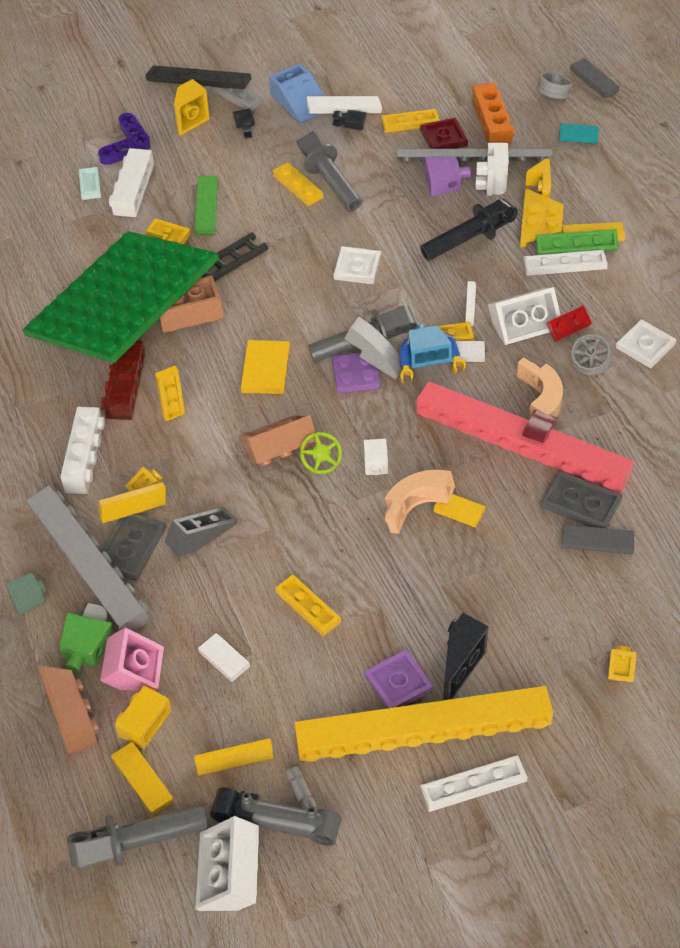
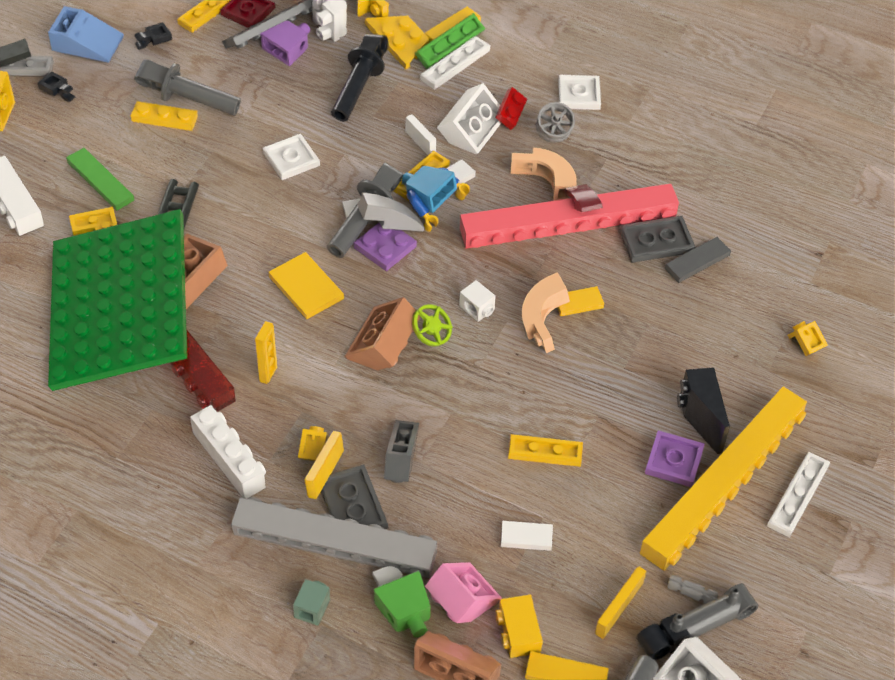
camera: 45 degrees left, 0 degrees up
(329, 104) = (128, 28): white tile -> none

